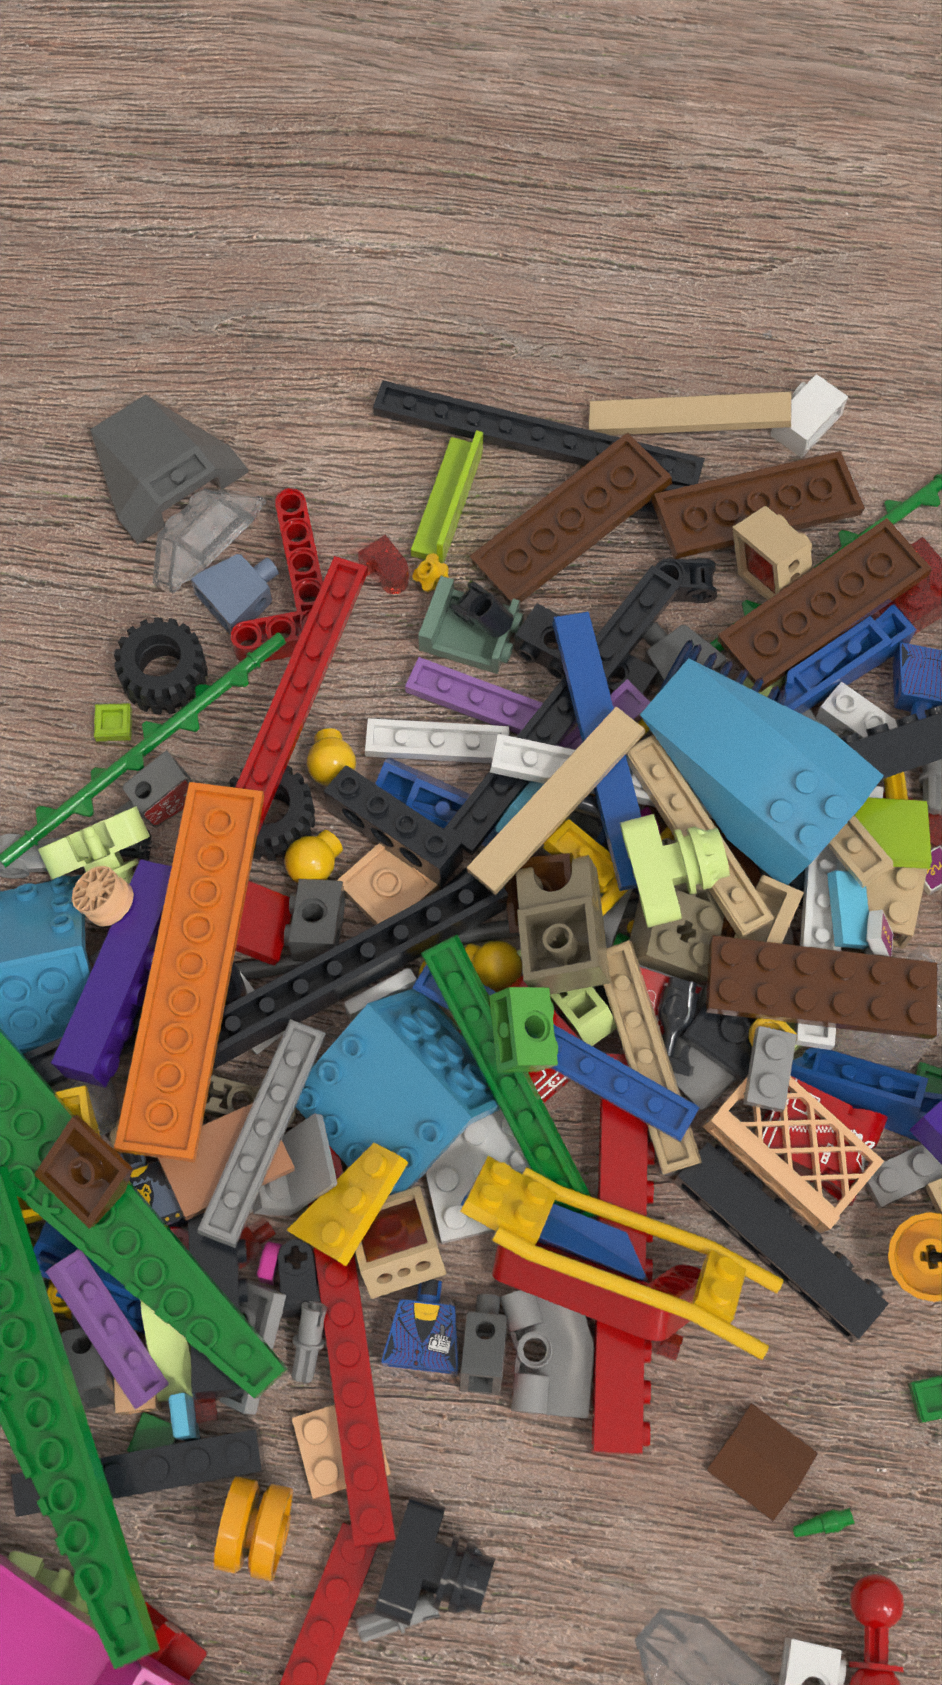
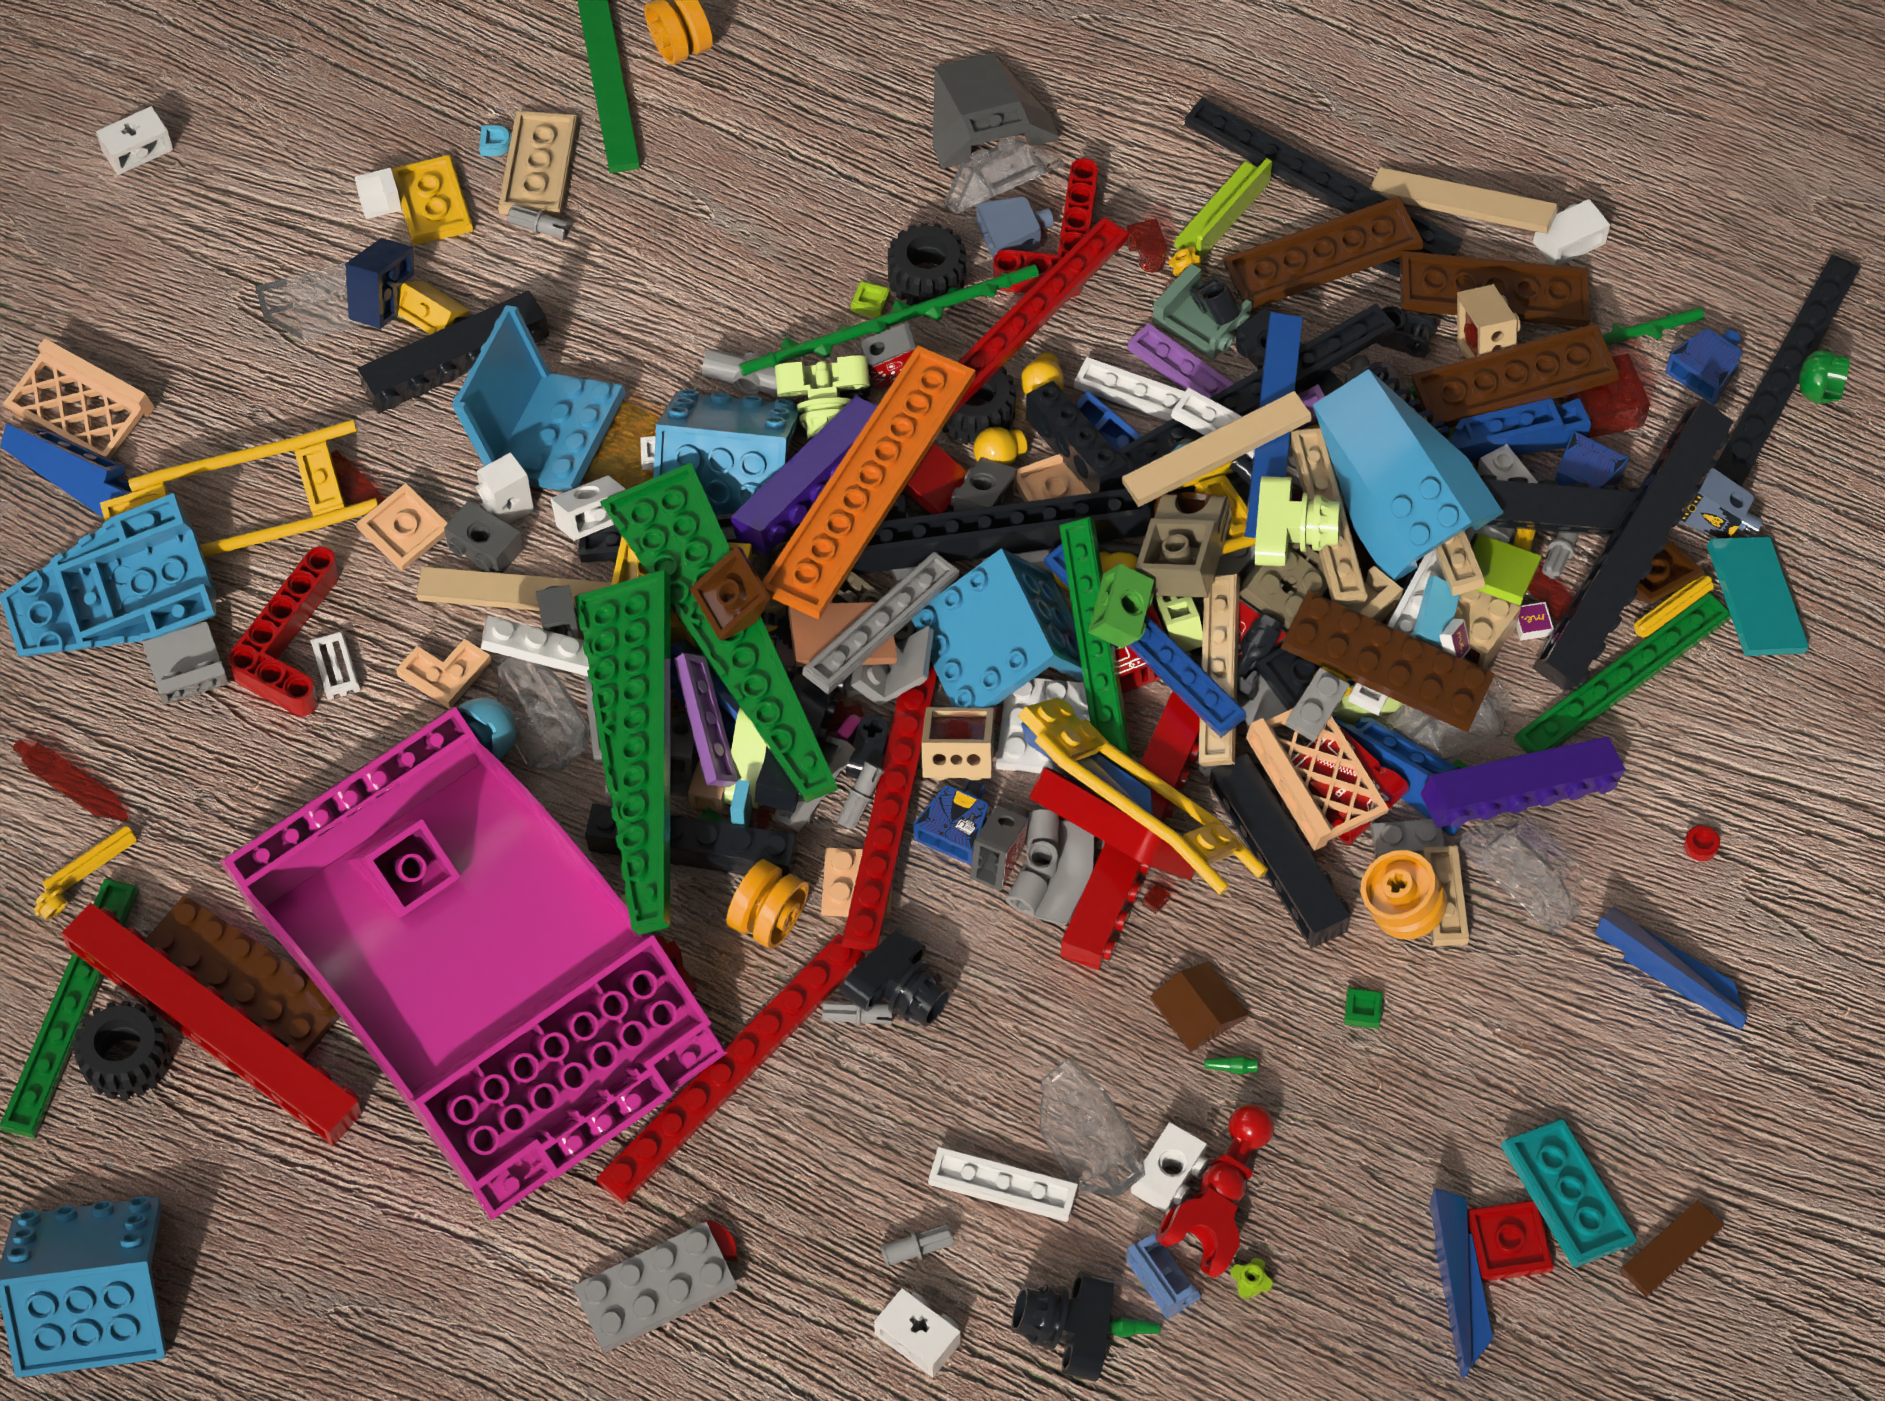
camera: 20 degrees right, 10 degrees down
(102, 896) = (815, 411): light nougat wheel -> none
(345, 1213) = (932, 699): yellow wing -> none

